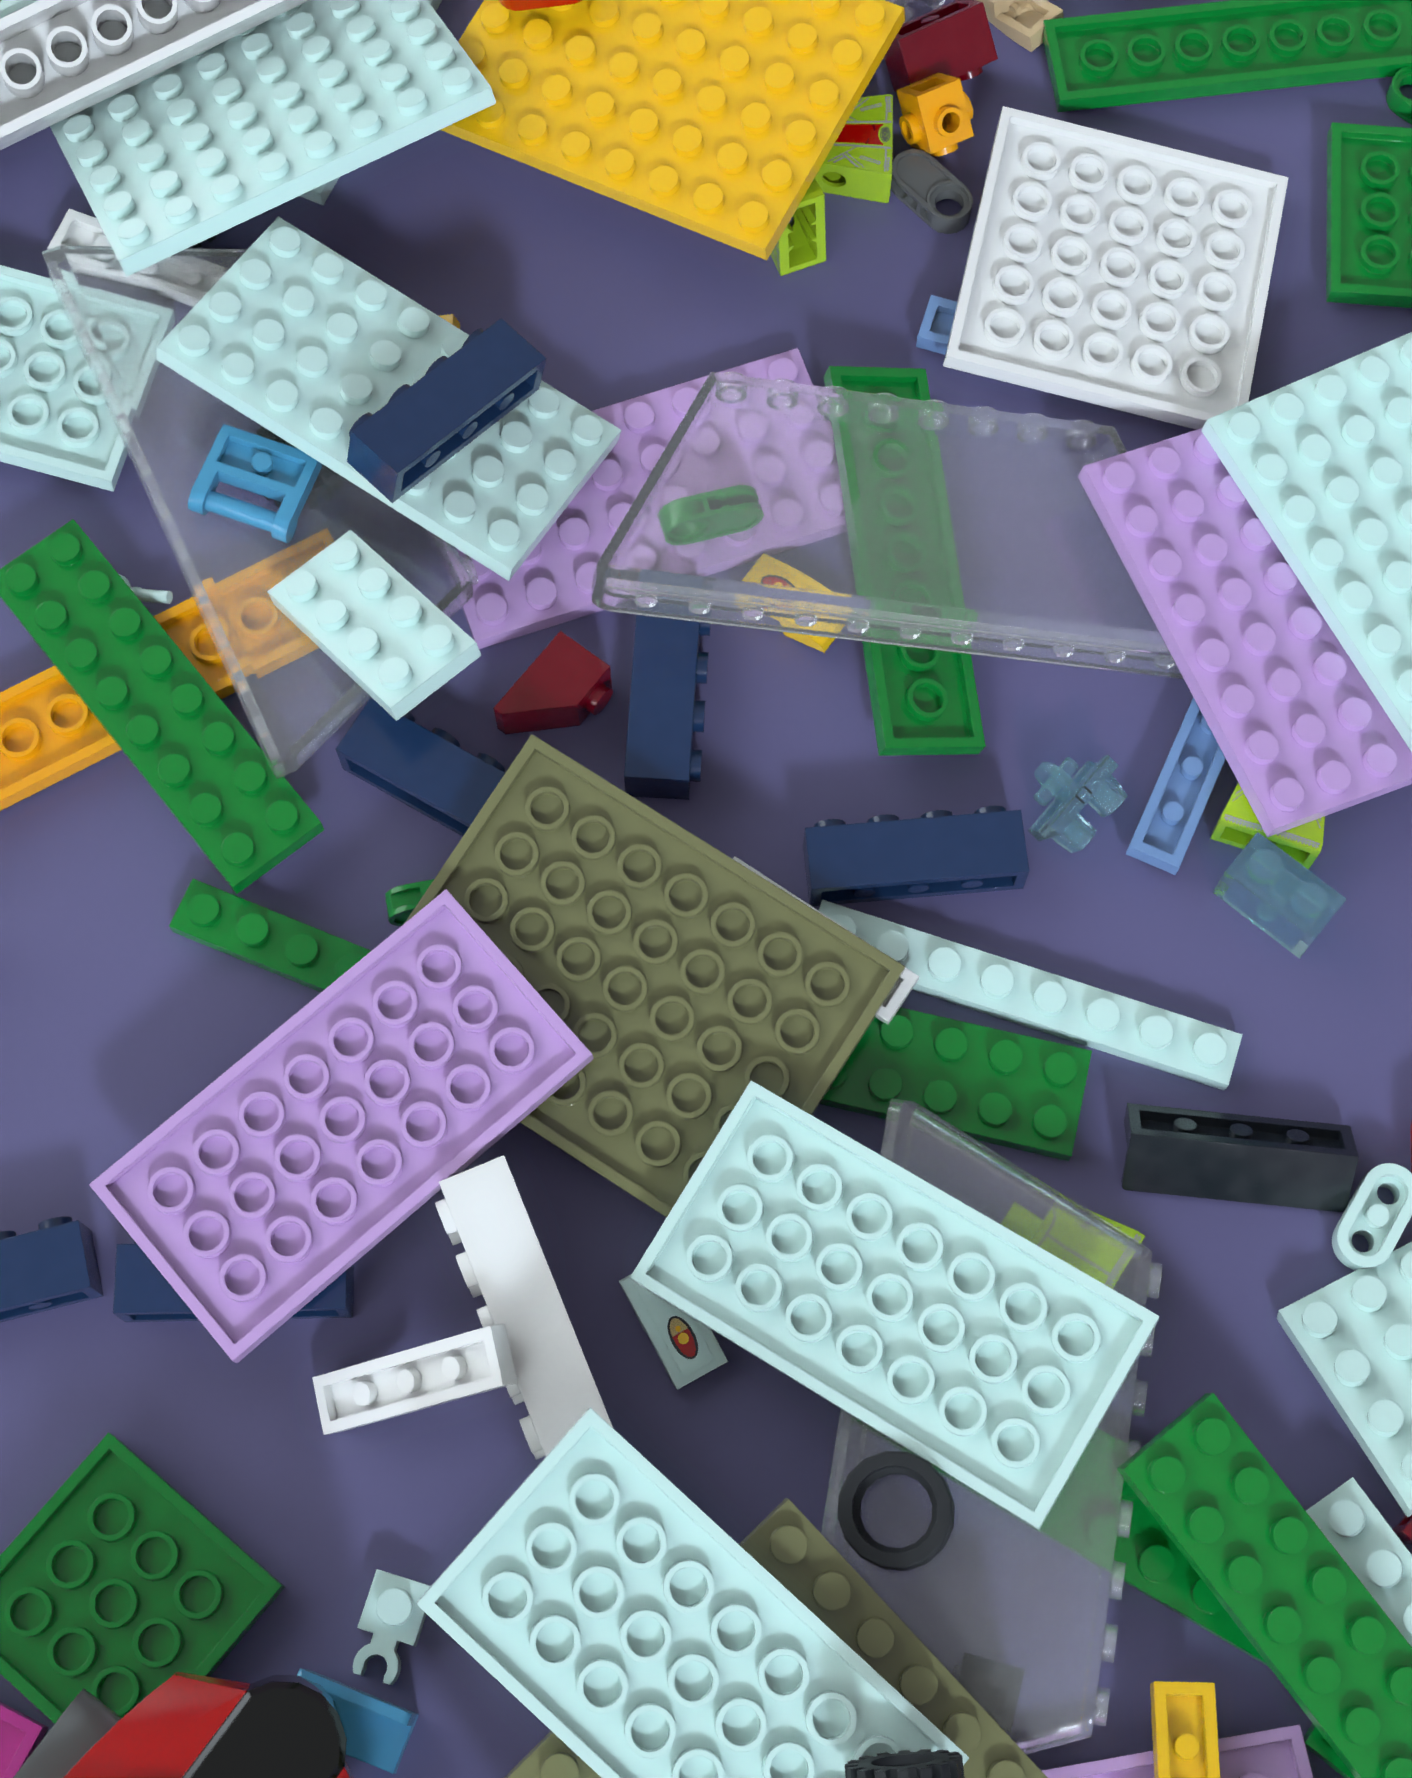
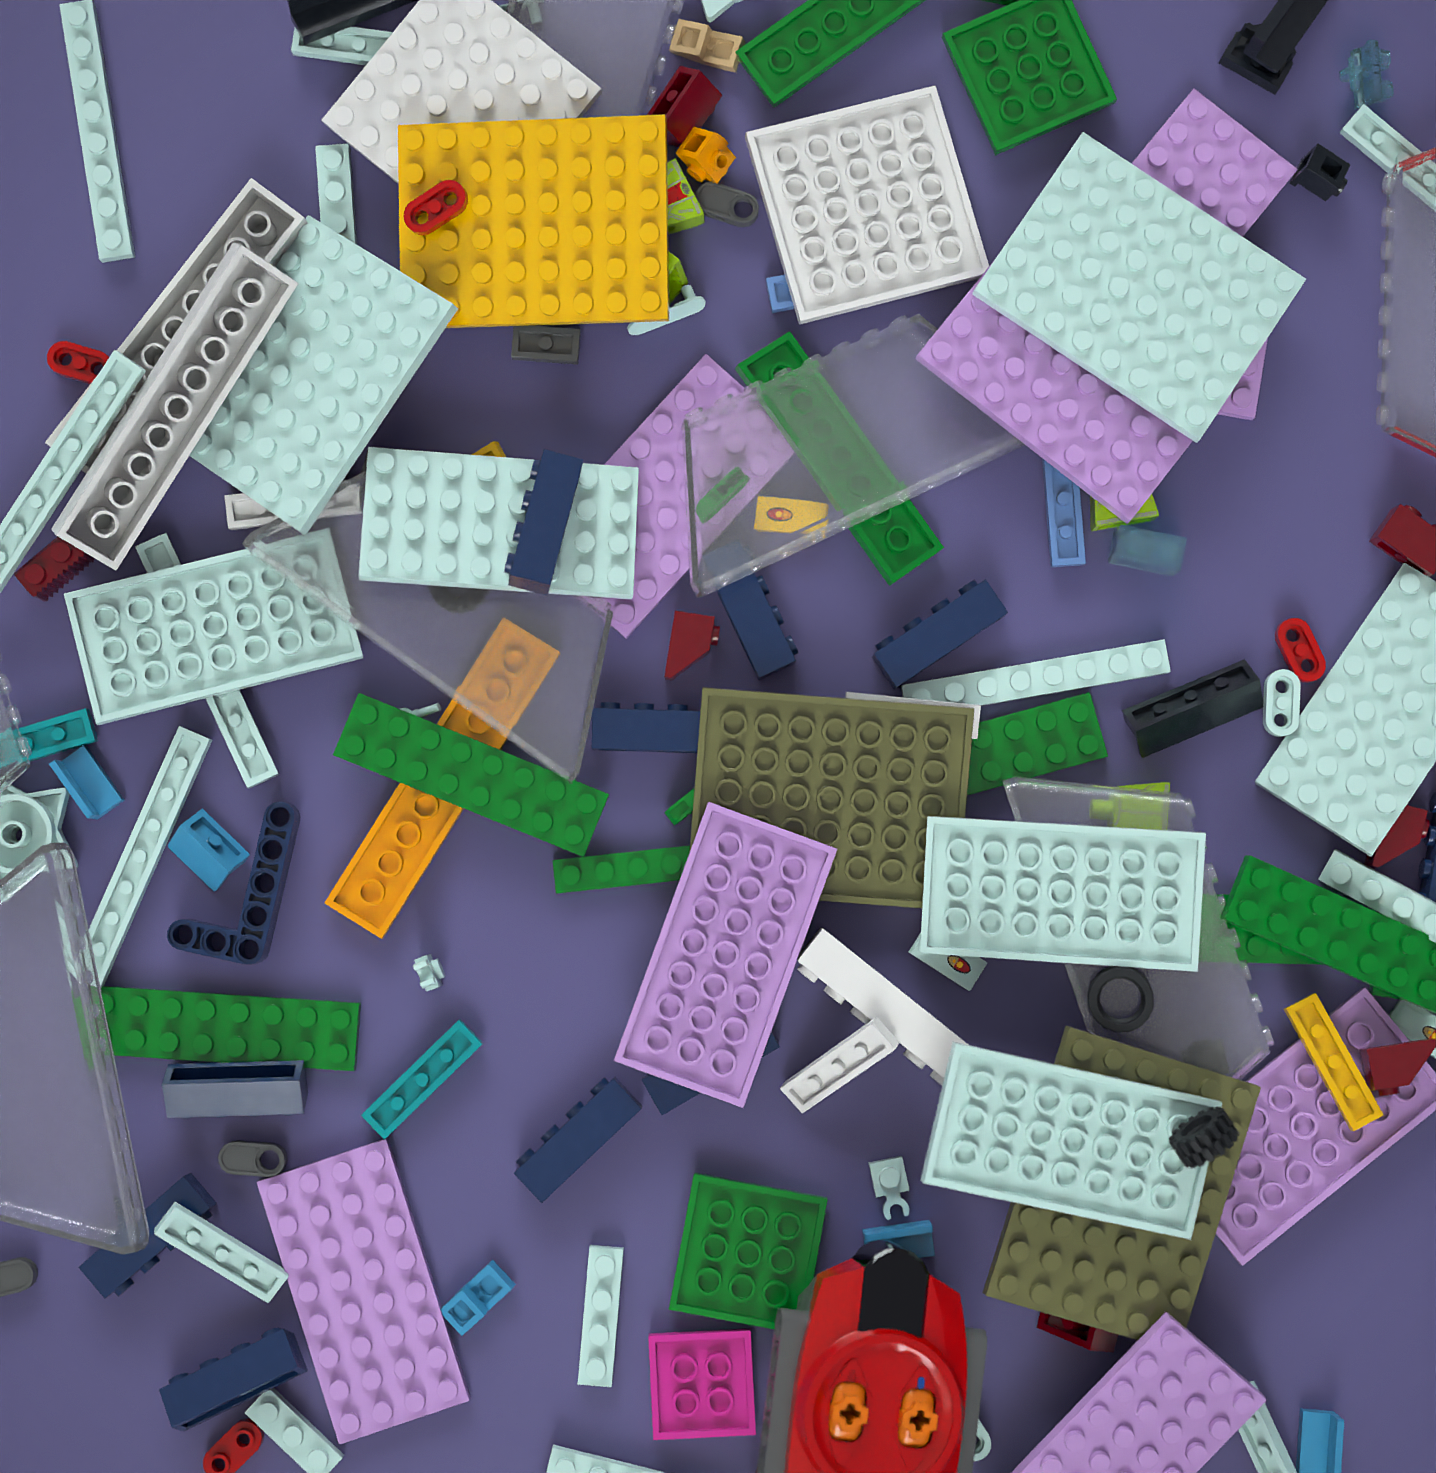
camera: 30 degrees left, 15 degrees up
(260, 468) = (447, 606): dark azure plate -> none
(374, 624) = (574, 668): light aqua plate -> none
(594, 237) = (546, 344): none -> dark grey plate
(771, 279) = (691, 305): none -> light aqua piece
(1089, 785) = (1005, 550): clear light blue hips -> none

